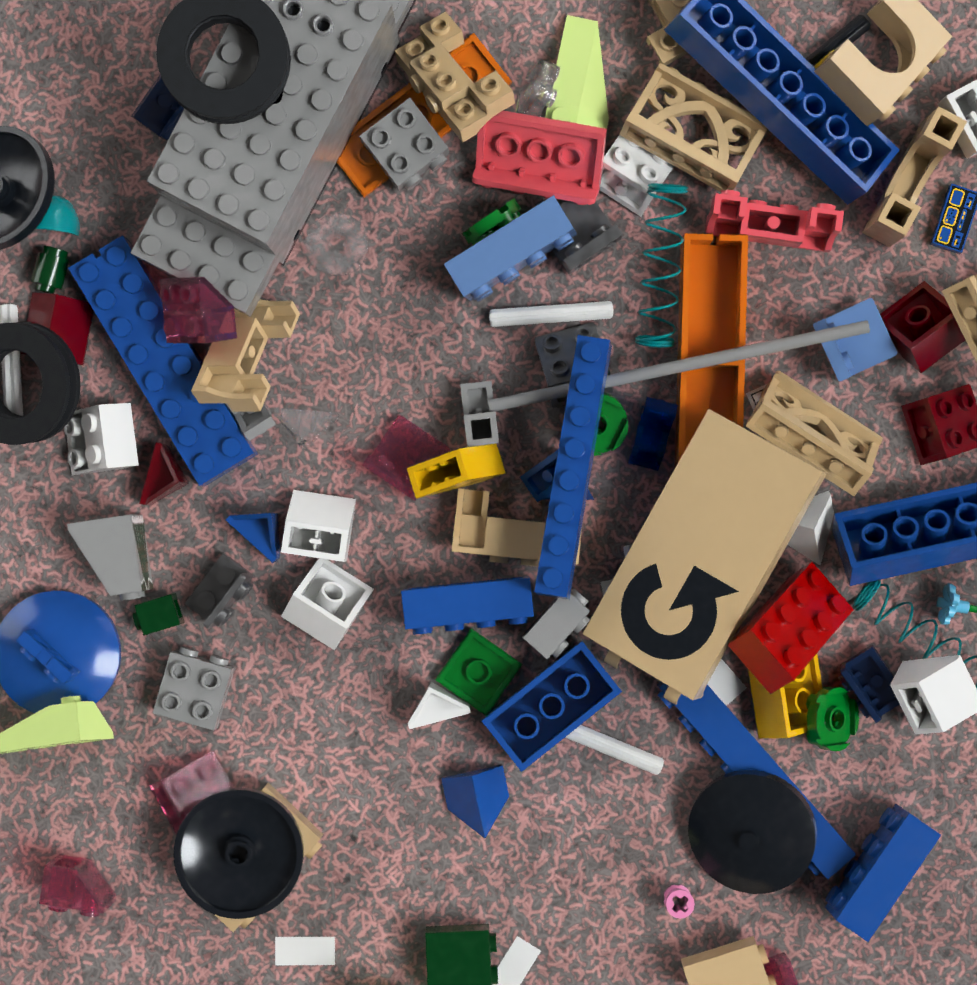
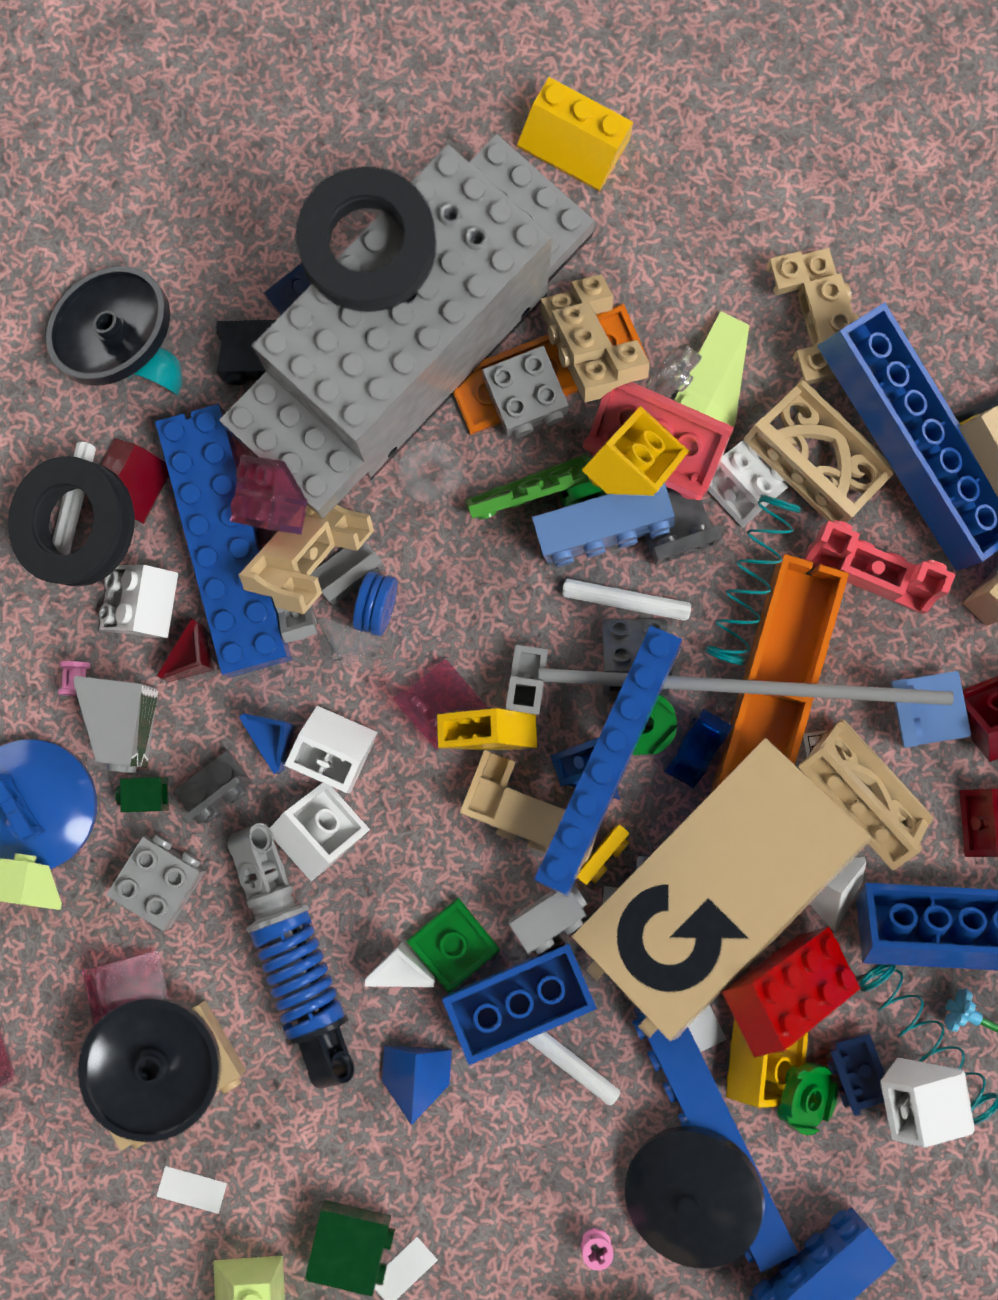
camera: 15 degrees right, 5 degrees down
(50, 269) = (138, 420): dark green brick -> none
(59, 523) = (71, 669): none -> bright pink bush
(128, 174) = (237, 357): none -> black hips
(285, 359) = (346, 572): none -> light grey panel
(320, 381) = (375, 603): none -> blue head
(336, 722) = (297, 965): none -> piece
(436, 232) = (529, 488): none -> bright green wing
(467, 603) = (461, 871): blue brick -> none
(524, 182) = (636, 457): none -> yellow slope
(598, 542) = (612, 844): none -> yellow plate

